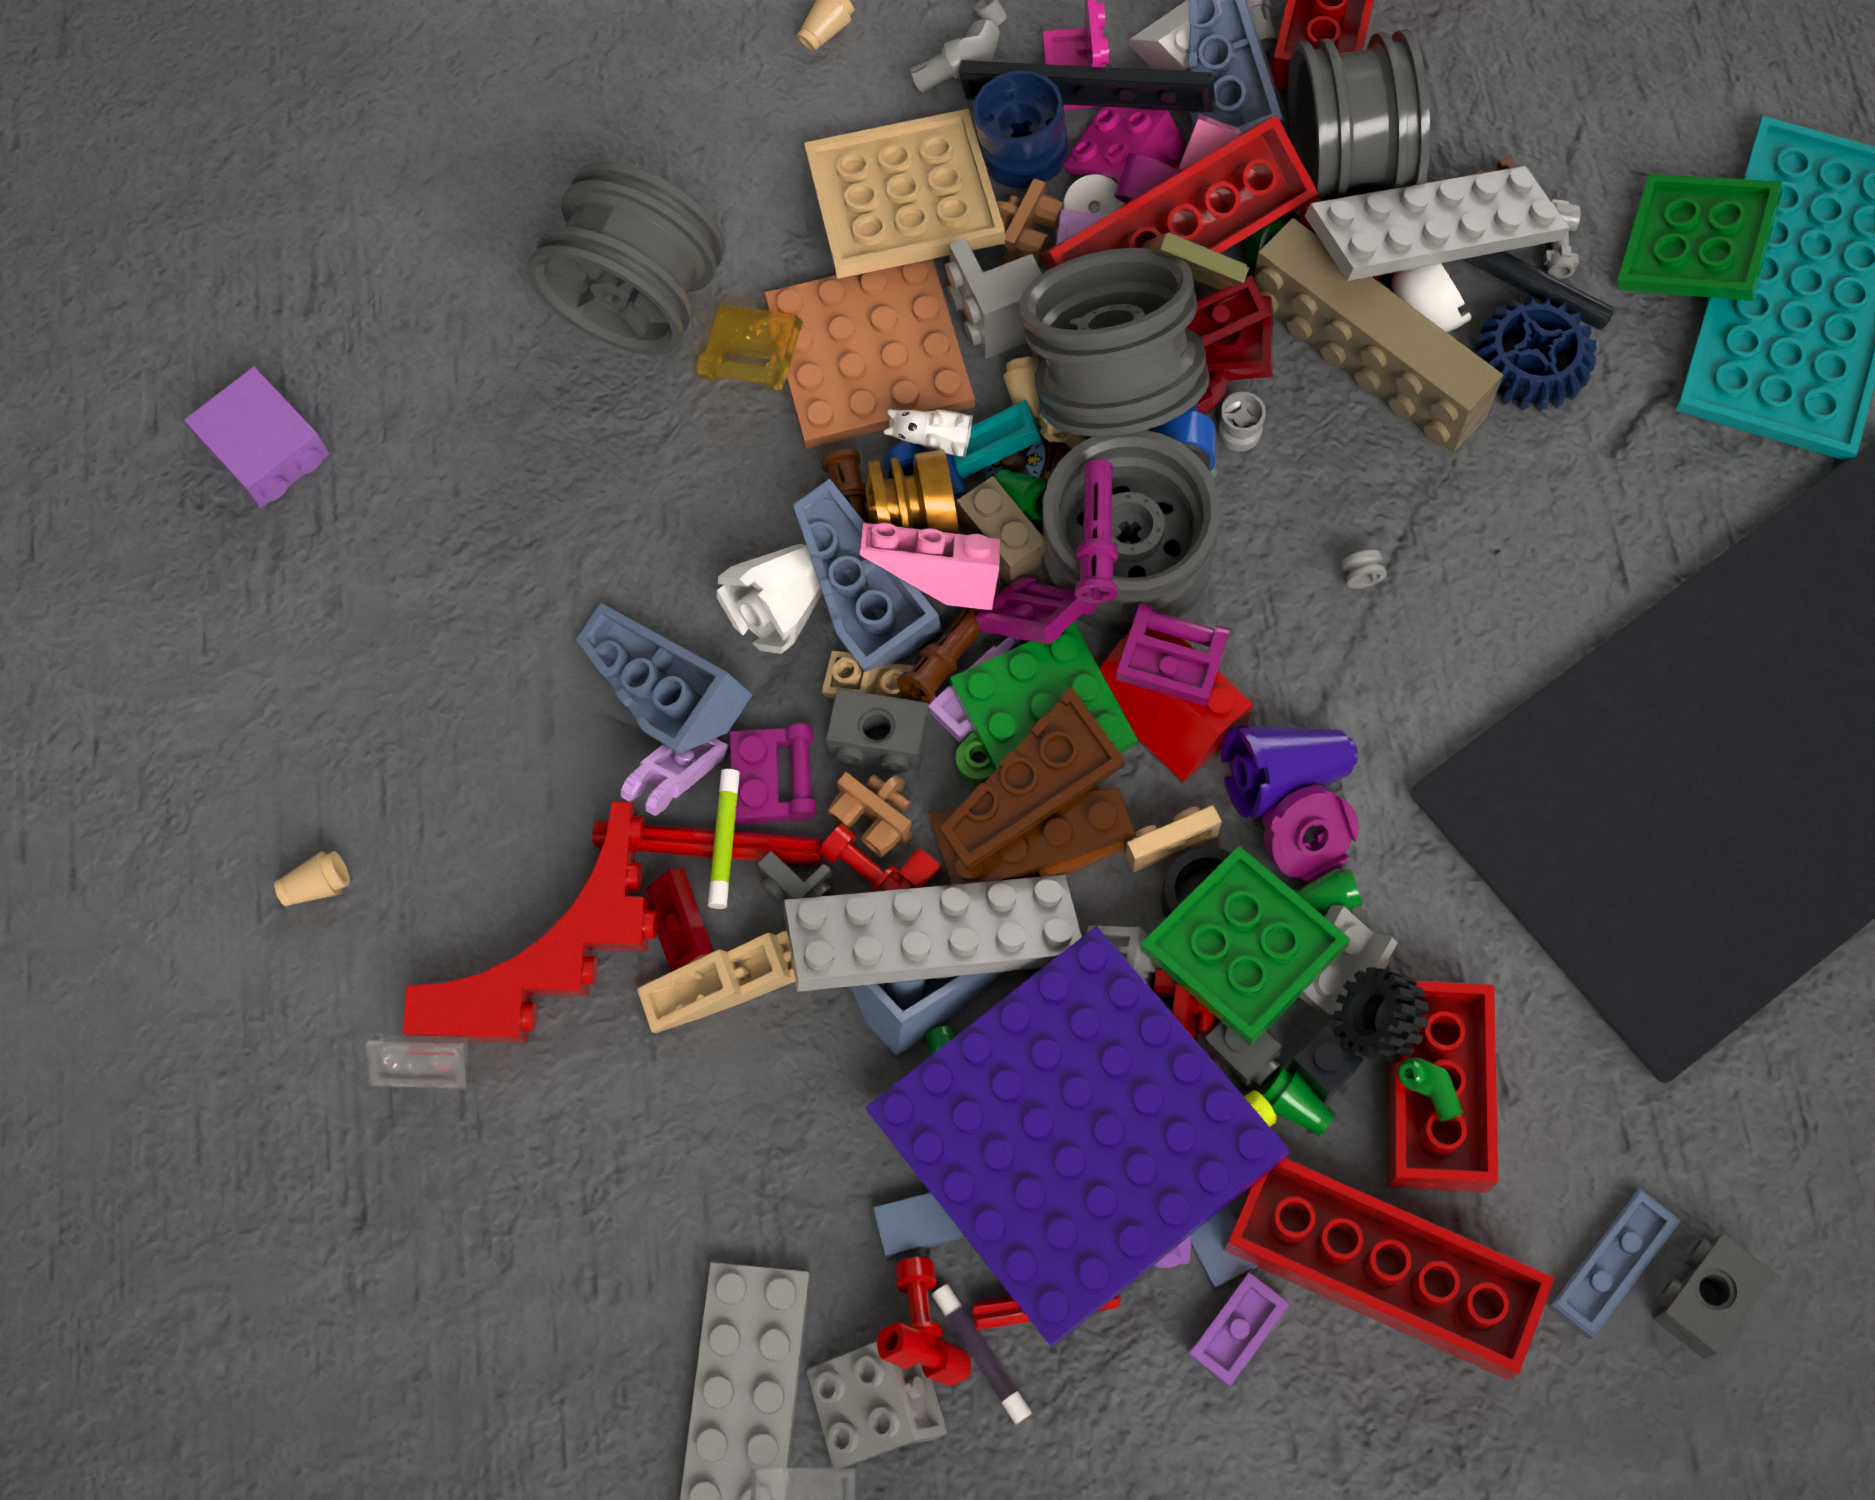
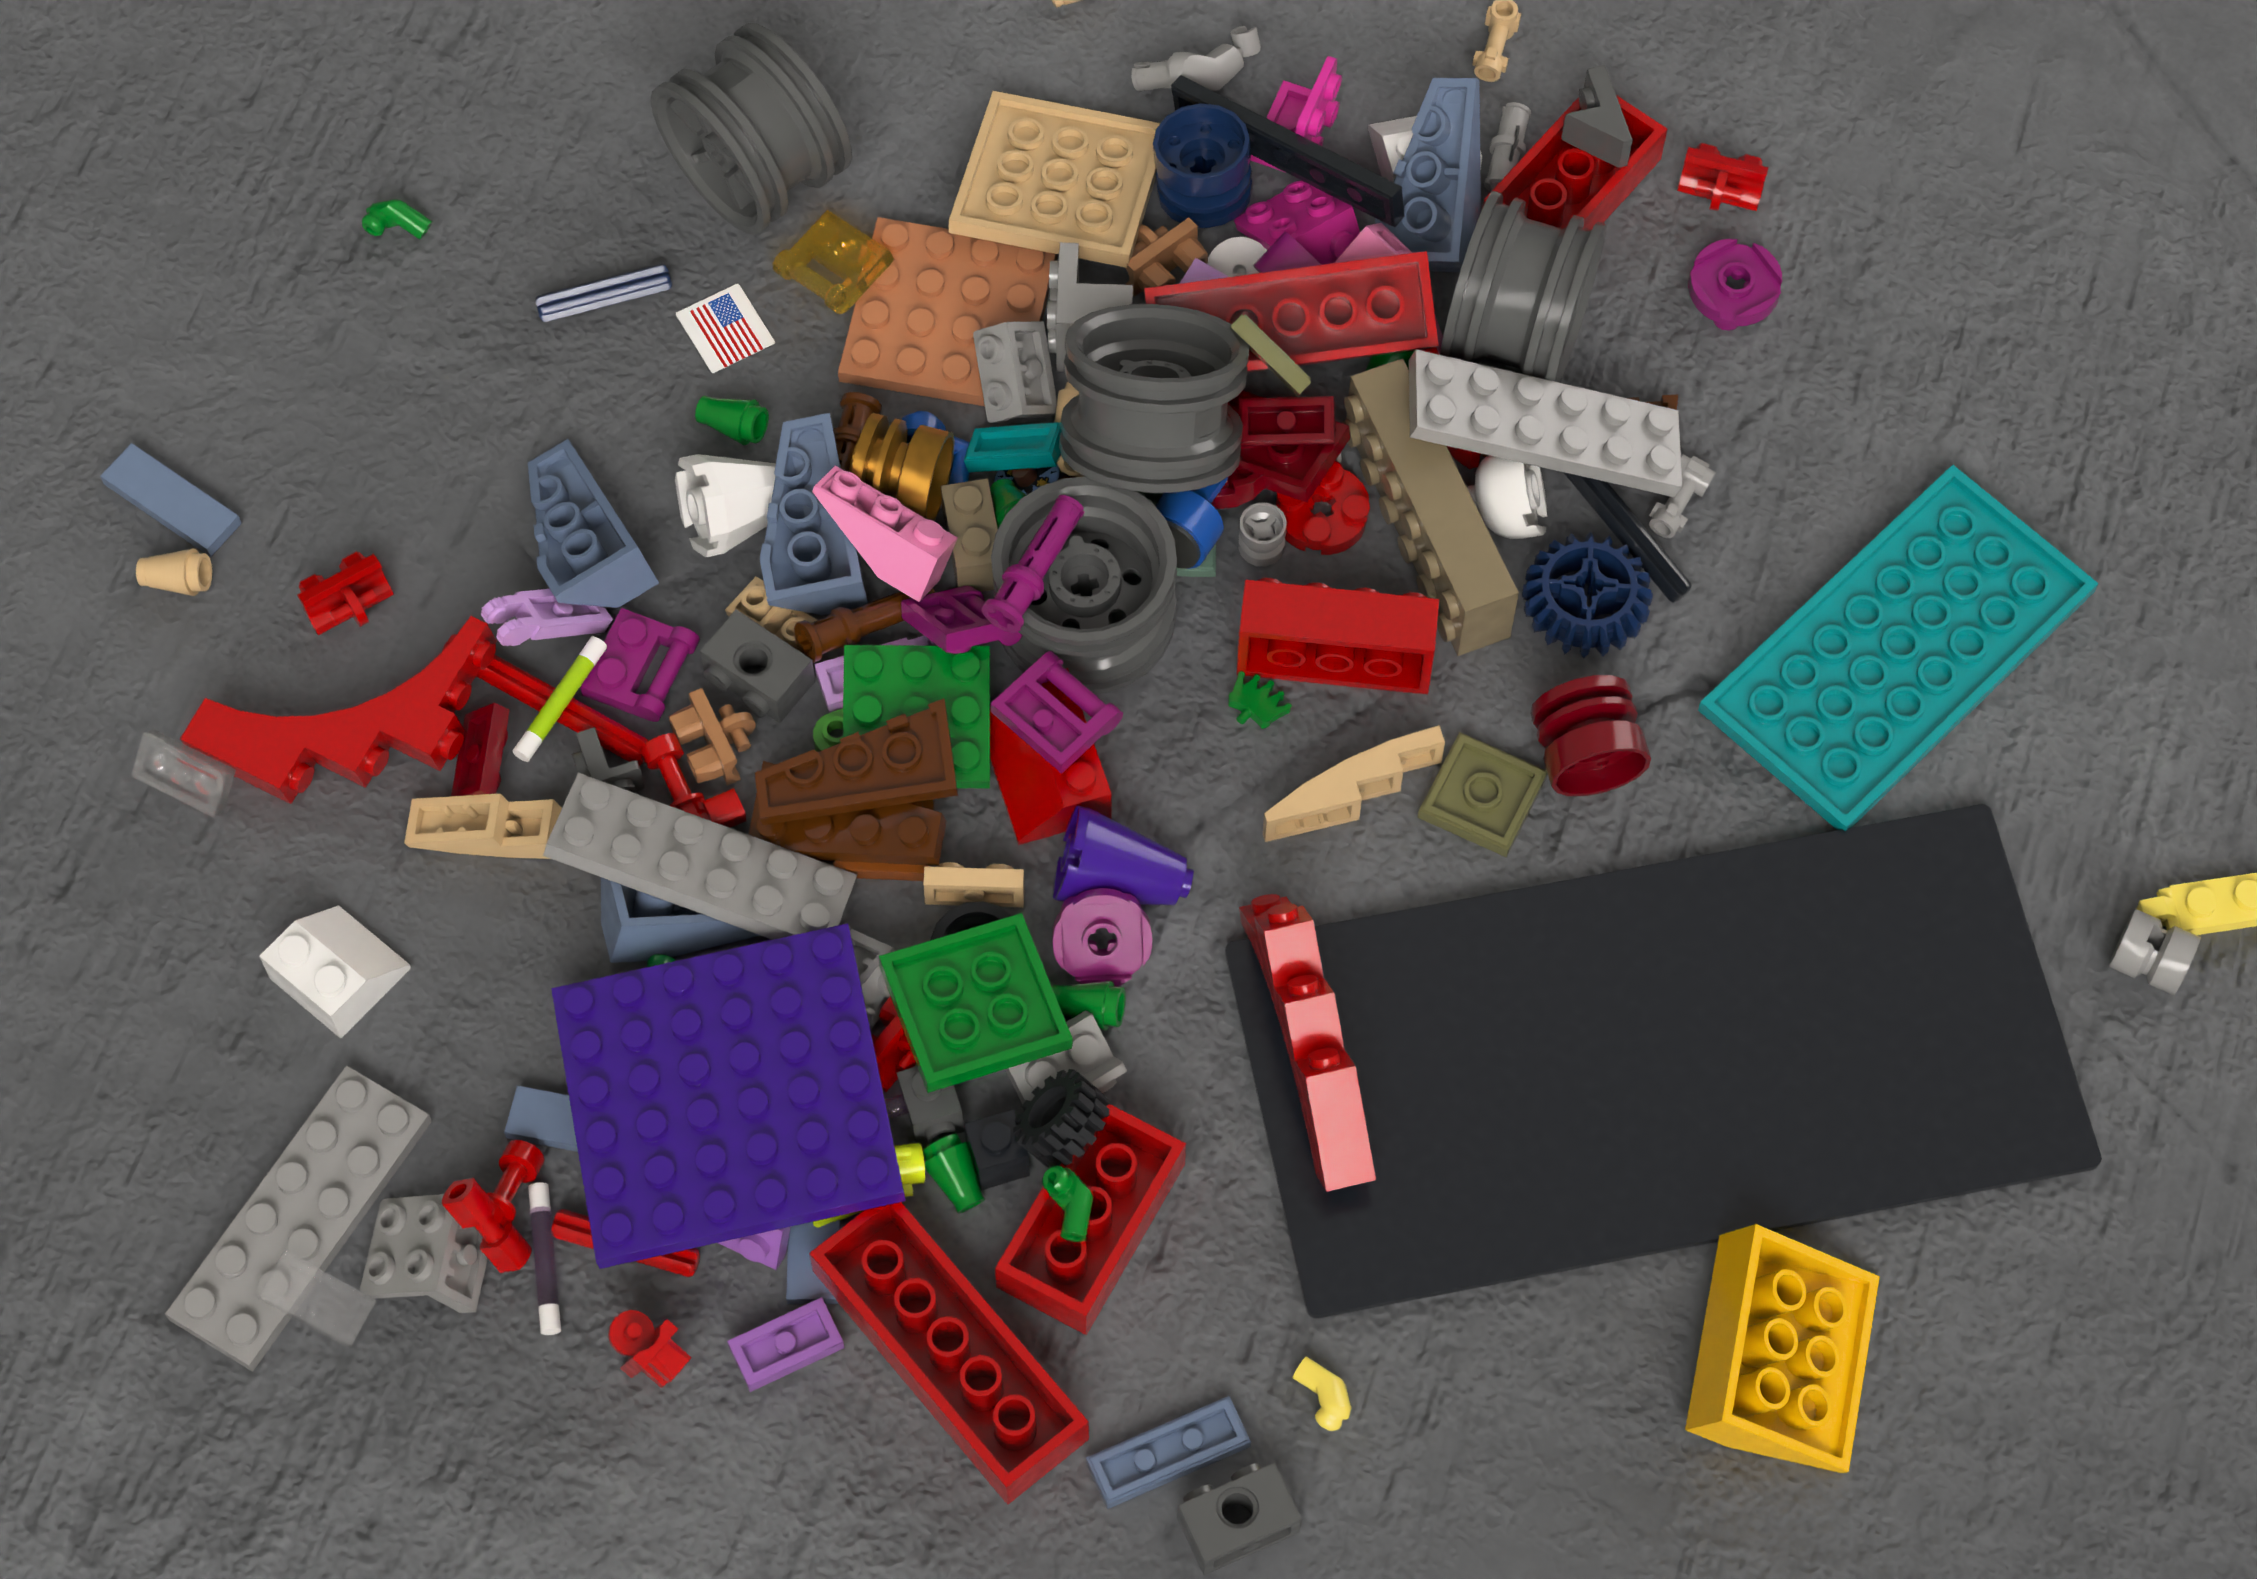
camera: 20 degrees right, 5 degrees down
(257, 437) = (335, 150): medium lavender brick -> none
(272, 815) = (171, 499): none -> sand blue tile
(338, 472) = (393, 214): none -> green arm
(480, 832) = (344, 594): none -> red hips
(561, 460) = (603, 292): none -> axle
(651, 1176) = (333, 967): none -> white slope
(682, 445) = (725, 328): none -> sticker
(737, 520) = (735, 418): none -> green cone
(932, 429) = (956, 412): white animal -> none
(959, 371) = (1015, 371): none -> light grey bracket
(1130, 1397) = (649, 1348): none -> red hips
(1302, 375) = (1330, 533): none -> red plate
(1312, 569) = (1257, 703): none -> green piece
(1361, 479) = (1337, 636): none -> red brick
(1363, 569) = (1300, 723): light grey bush -> none
(1435, 609) = (1338, 792): none -> tan slope
(1499, 63) = (1735, 306): none -> magenta plate
(1543, 561) = (1482, 794): none -> olive tile
(1547, 830) = (1313, 1036): none -> arch
(1608, 463) = (1590, 735): none -> dark red wheel
(1700, 236) = (1814, 552): green plate -> none
(1719, 1140) = (1330, 1391): none -> light yellow arm

